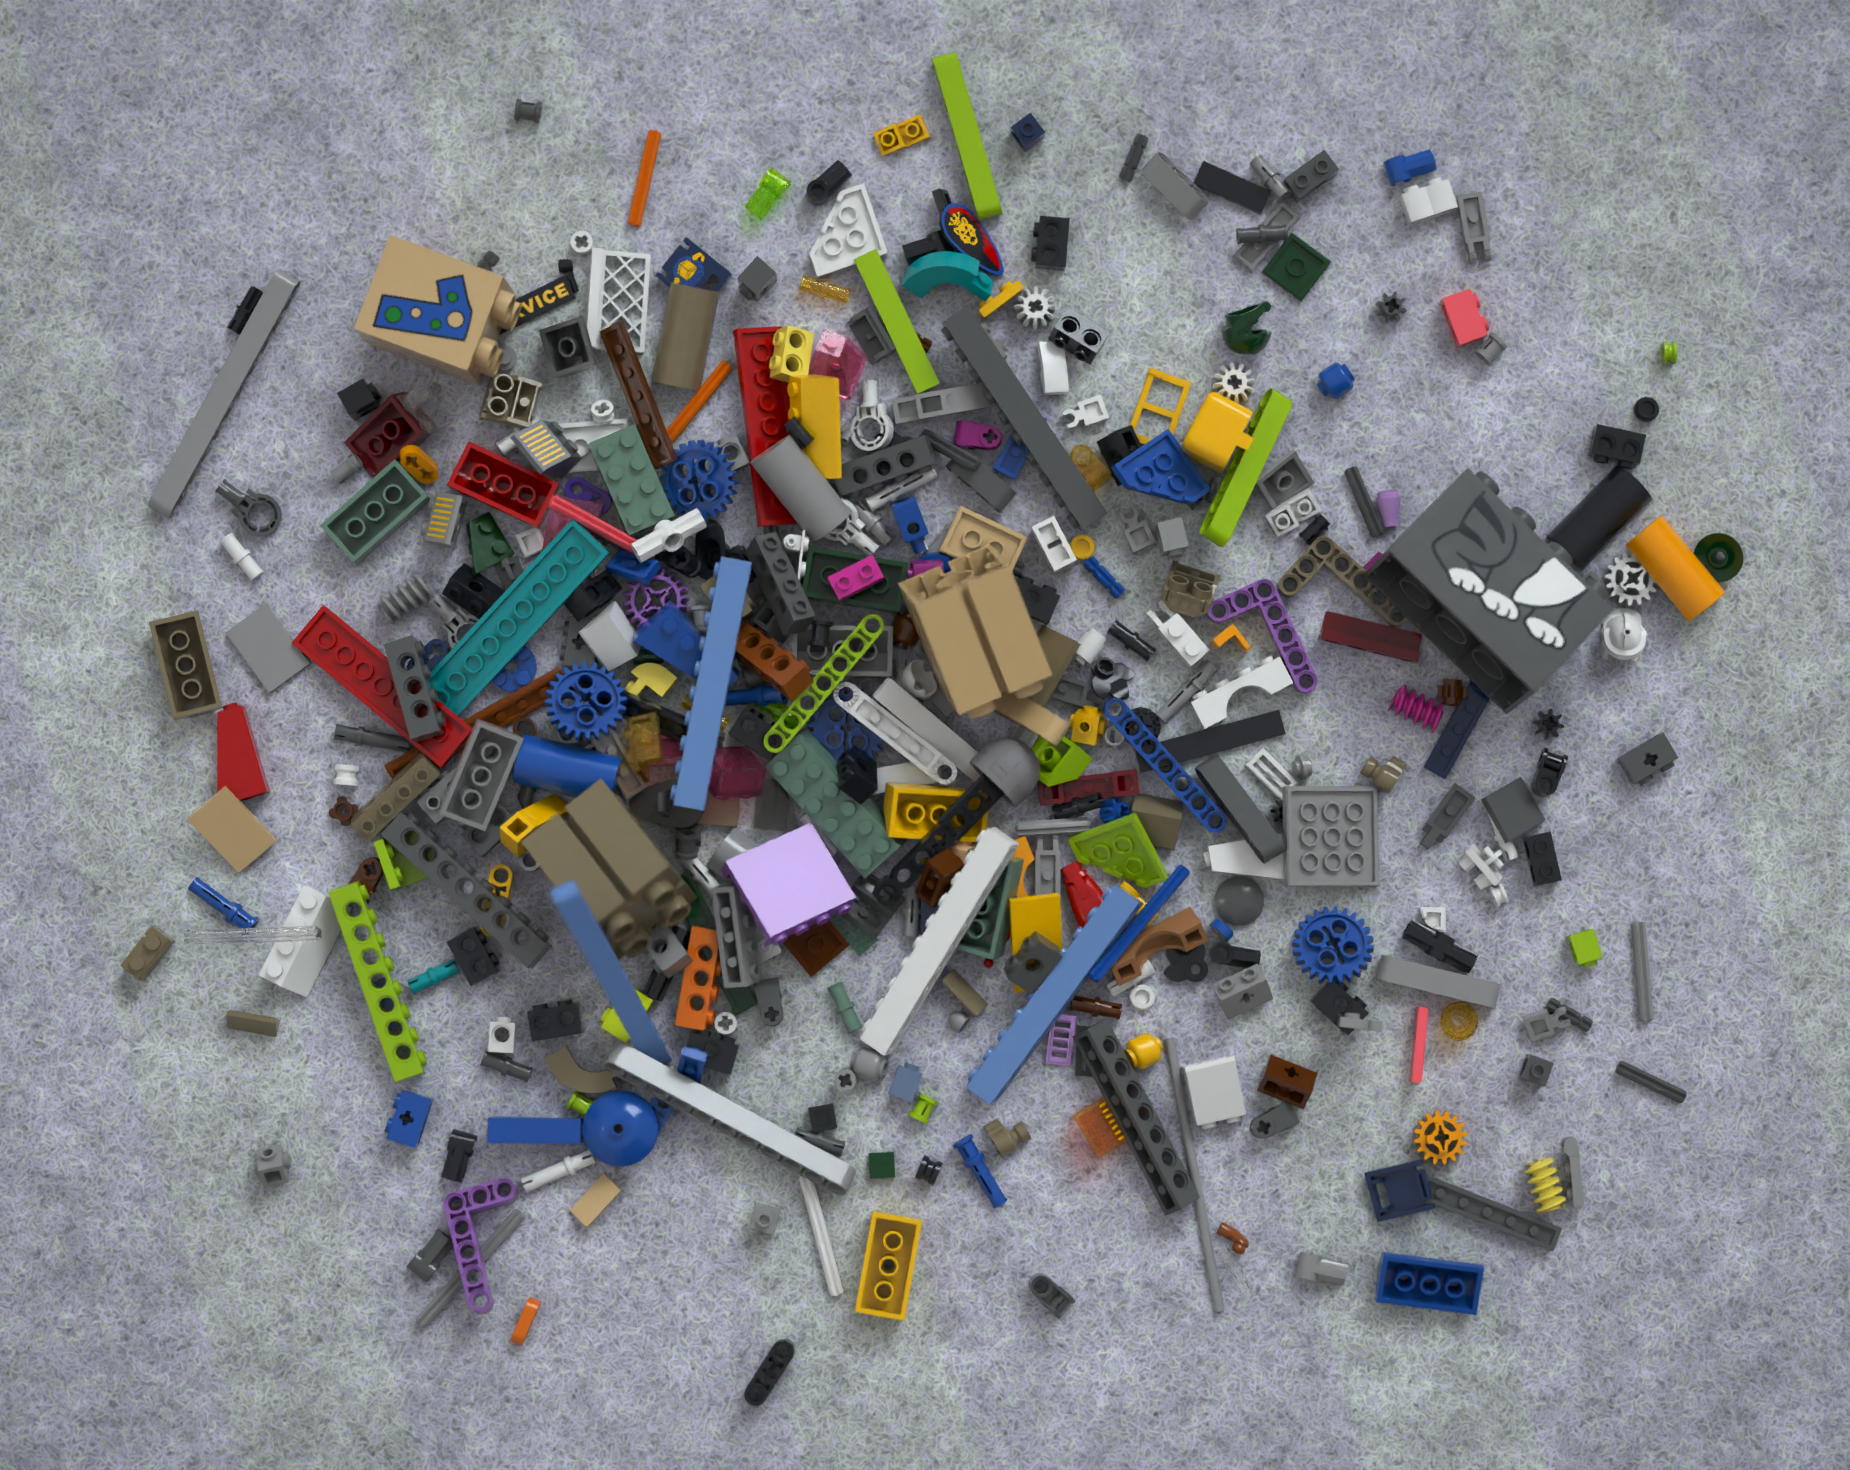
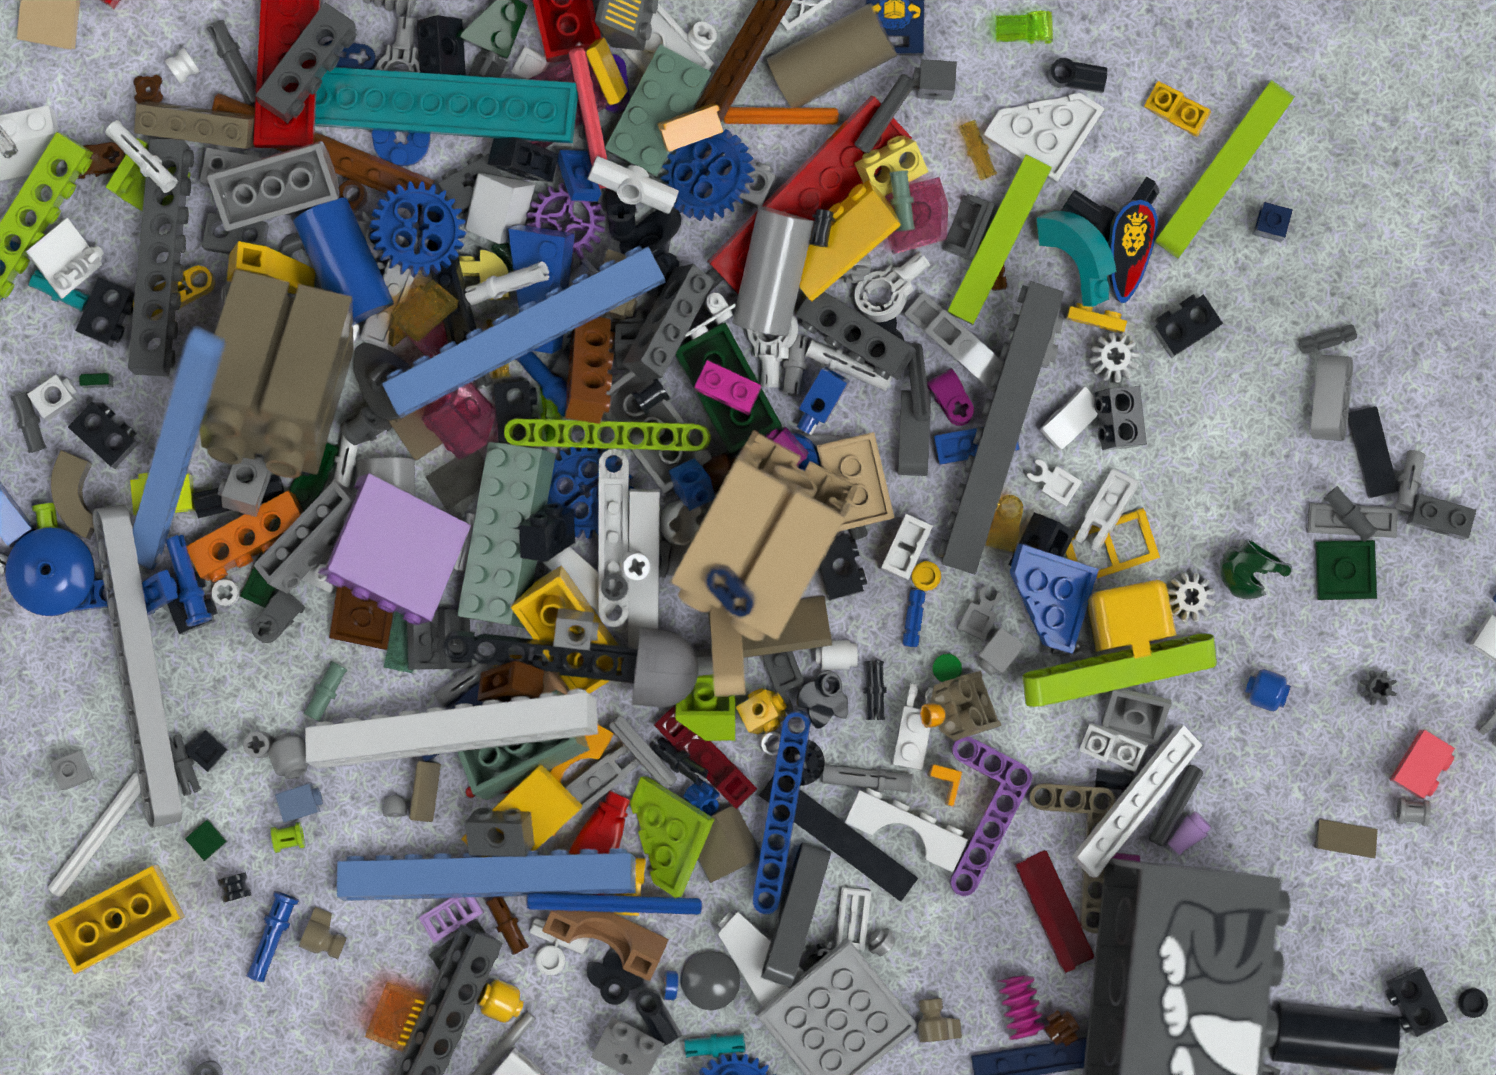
camera: 55 degrees right, 0 degrees up
(390, 848) = (157, 172): none -> white pin
(415, 954) = (65, 257): none -> white hinge
(514, 998) = (96, 380): none -> dark green tile
(579, 492) = (606, 71): none -> yellow tile
(660, 466) = (690, 127): none -> panel
(665, 680) = (496, 287): none -> white pin
(710, 1044) = (191, 593): none -> blue pin
(753, 330) = (885, 113): none -> dark grey axle
(820, 364) = (902, 200): none -> sand green pin
(901, 652) = (692, 484): none -> blue brick
(927, 803) = (568, 618): none -> light grey brick
(931, 727) = (625, 563): none -> white bush
(936, 754) = (623, 591): none -> dark grey bush
(995, 673) = (725, 595): none -> dark blue beam
(1131, 390) = (1107, 507): none -> white hinge
(1154, 581) = (946, 667): none -> green tile
(1179, 614) = (932, 715): none -> light orange hinge
(1284, 931) = (714, 1045): none -> teal pin
(1341, 524) = (1137, 801): none -> white plate
(1473, 406) = (1346, 838): none -> dark tan slope

